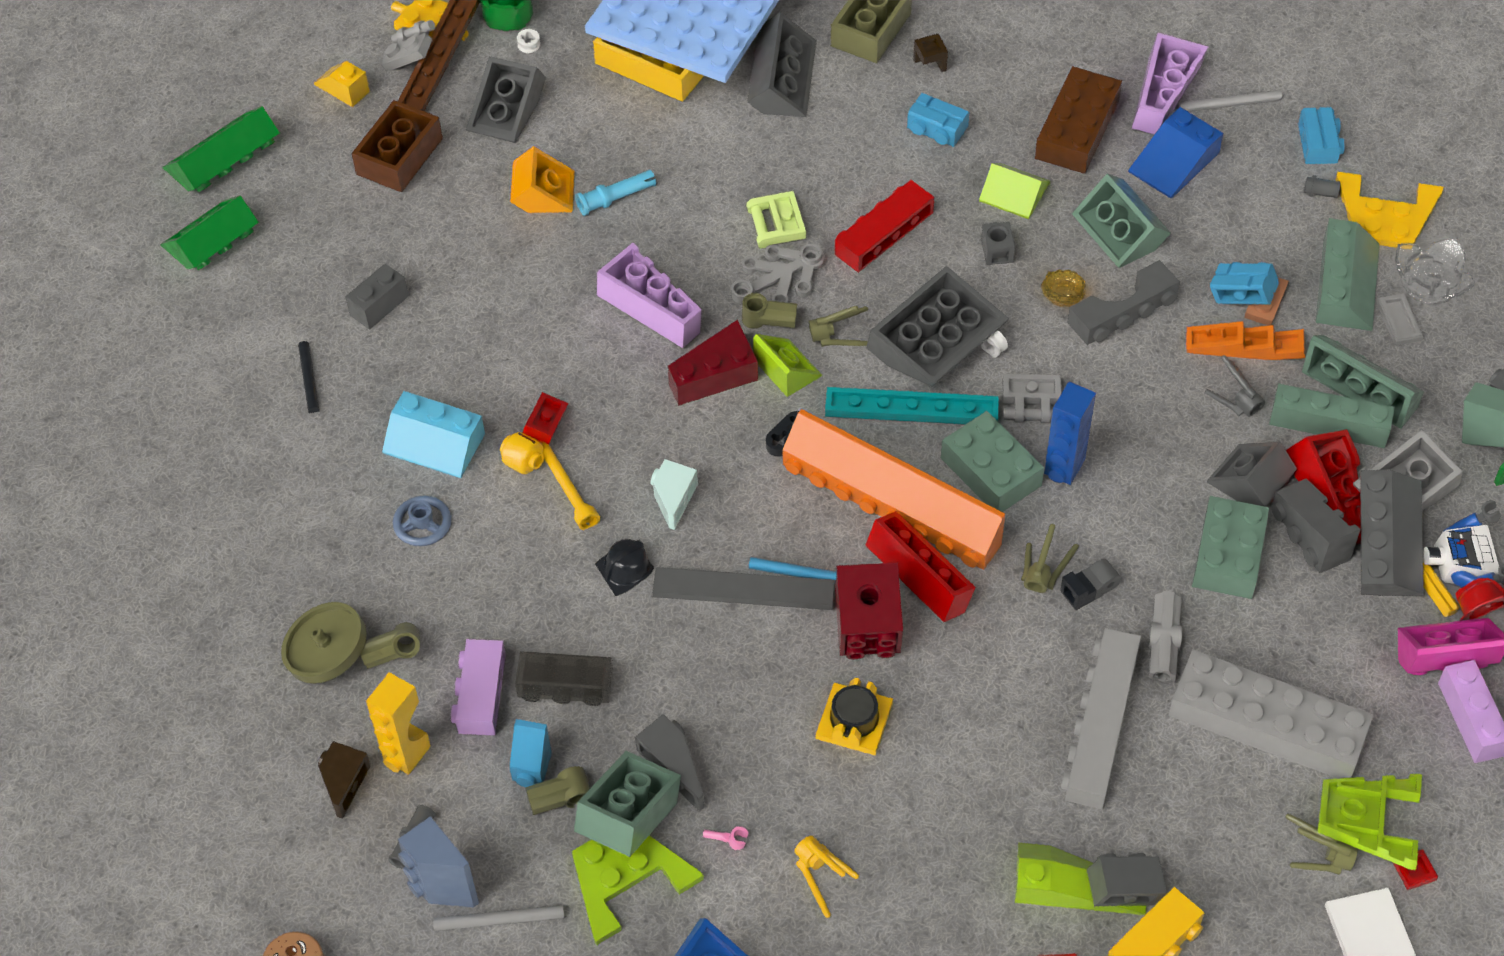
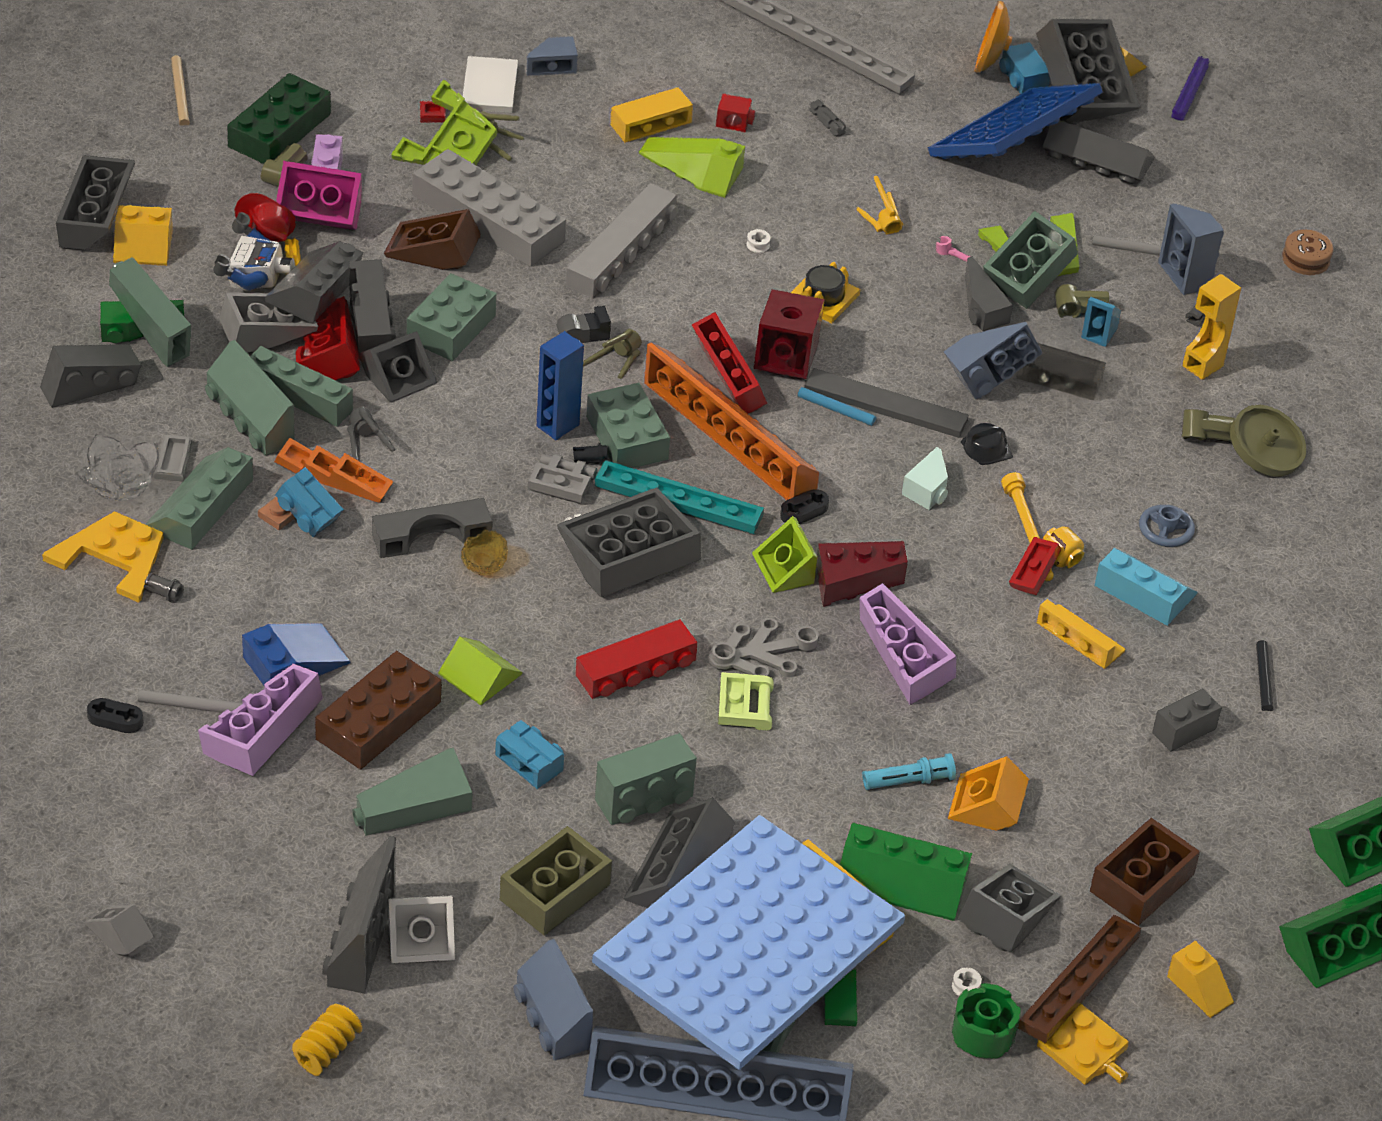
camera: 170 degrees left, 10 degrees down
(343, 773) = (1259, 351): dark brown slope -> none
(408, 45) = (1115, 994): light grey plate -> none
(479, 687) = (1135, 381): lavender brick -> none
(490, 367) = (1078, 634): none -> yellow panel
(598, 109) = (907, 870): none -> green slope
(641, 629) = (992, 356): none -> sand blue slope
(759, 312) = (795, 609): olive piece -> none
(823, 328) = (737, 581): olive plant -> none
(831, 105) = (645, 779): none -> sand green brick
(930, 50) = (505, 824): dark brown panel -> none
(960, 769) = (758, 247): none -> white bush
(997, 243) = (528, 612): dark grey brick -> none
(1008, 65) = (415, 795): none -> sand green slope
(1021, 429) = (591, 453): none -> black pin
(1120, 221) = (389, 600): sand green slope -> none
(1126, 880) = (659, 136): dark grey brick -> none
(1165, 637) = (541, 278): light grey piece -> none
(1287, 70) = (115, 715): none -> black beam
(1303, 650) = (435, 240): none -> reddish brown slope
(1320, 135) = (132, 630): dark azure brick -> none

